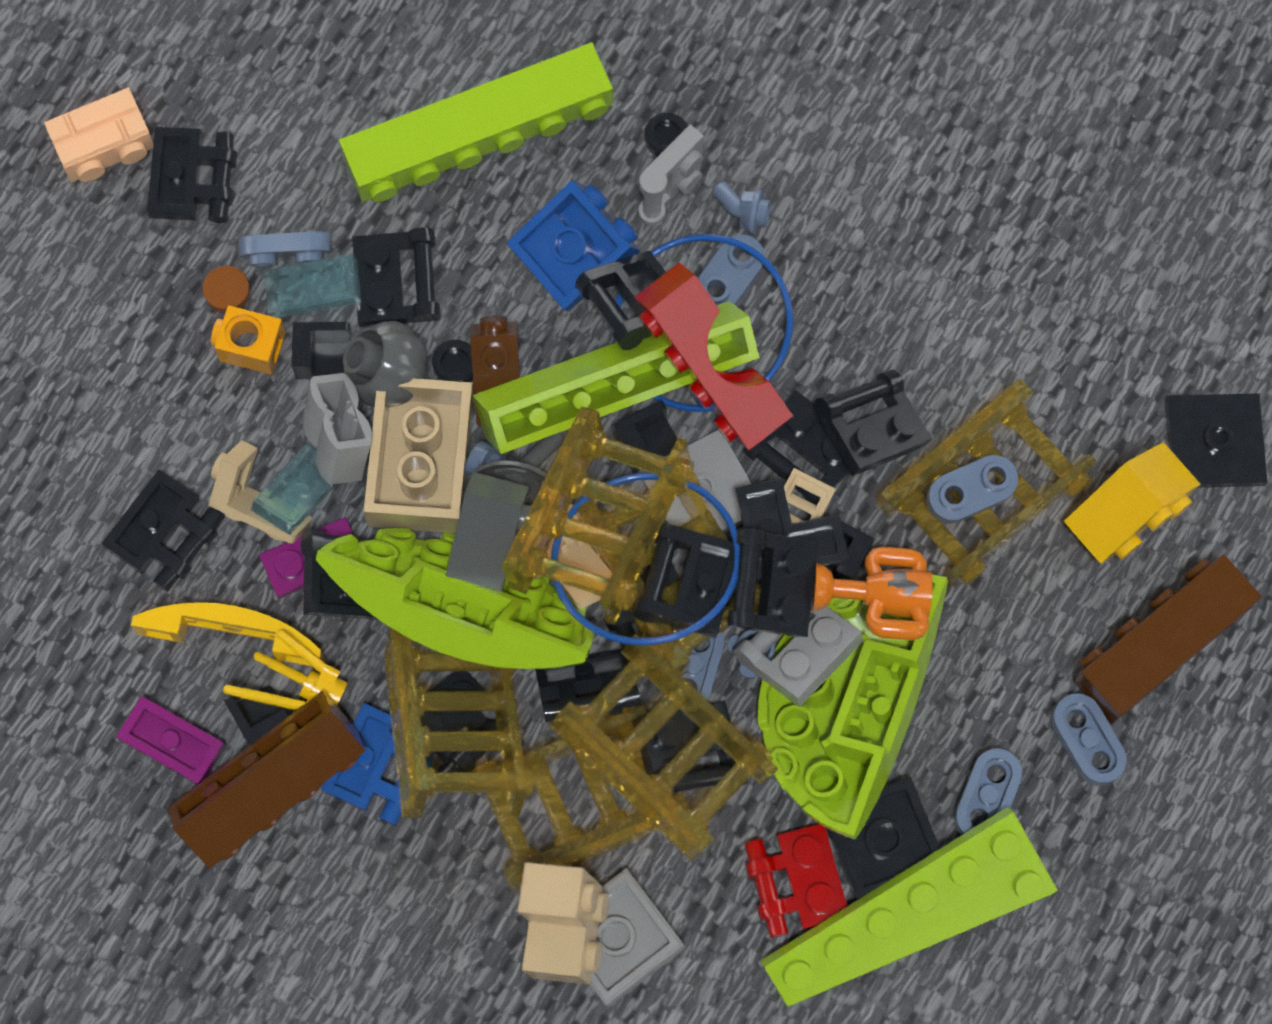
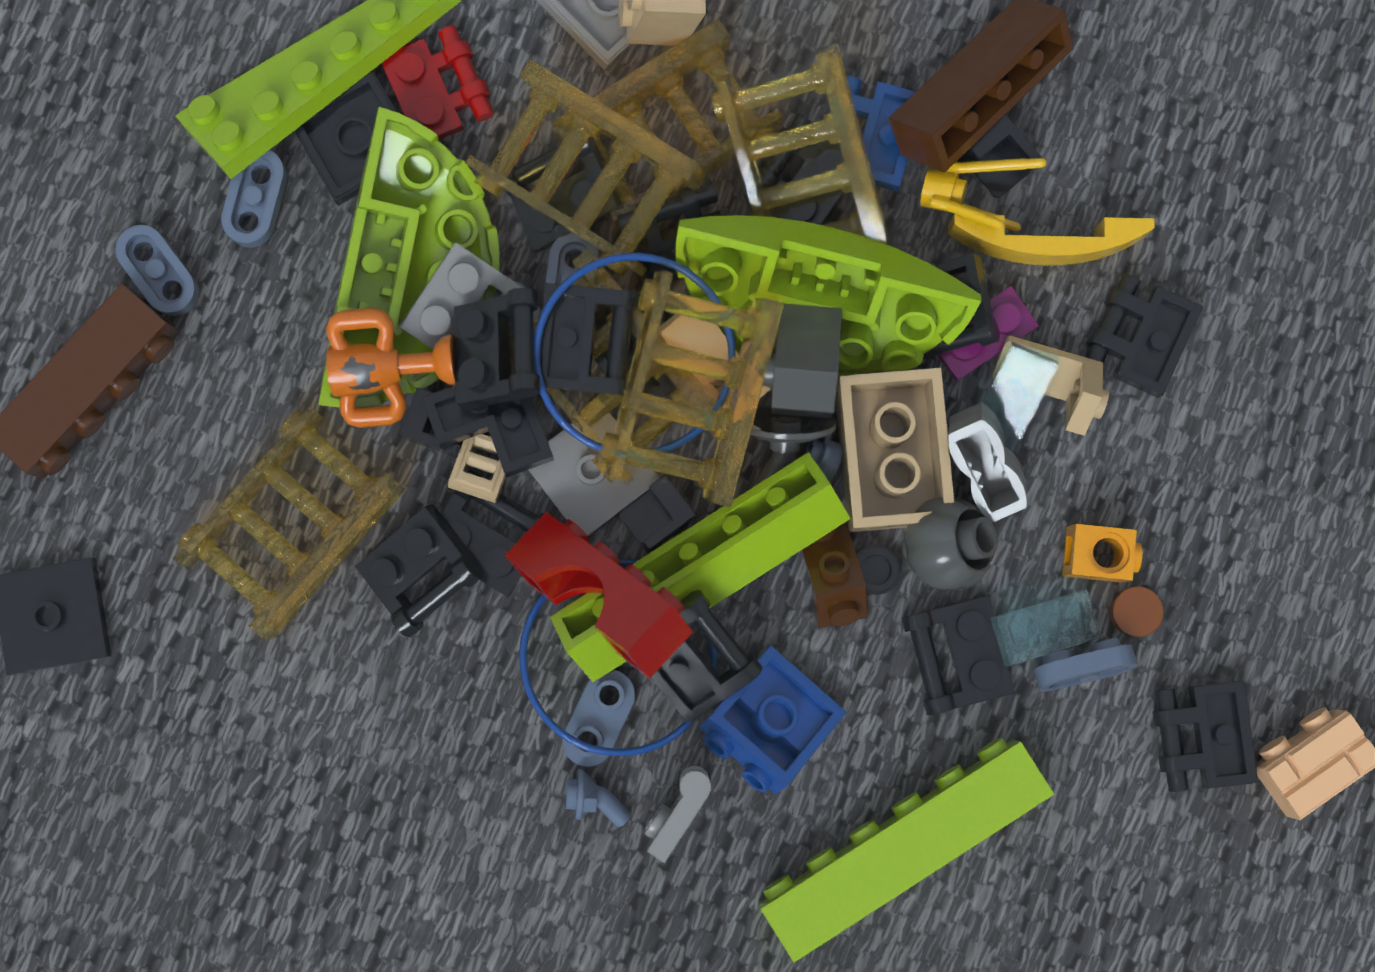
camera: 170 degrees right, 10 degrees up
(170, 741) = (1084, 121): magenta plate -> none
(319, 348) = (1024, 555): black panel -> none
(662, 131) = (692, 873): black tile -> none
(974, 489) = (301, 507): sand blue plate -> none
(1135, 497) = (126, 520): yellow brick -> none

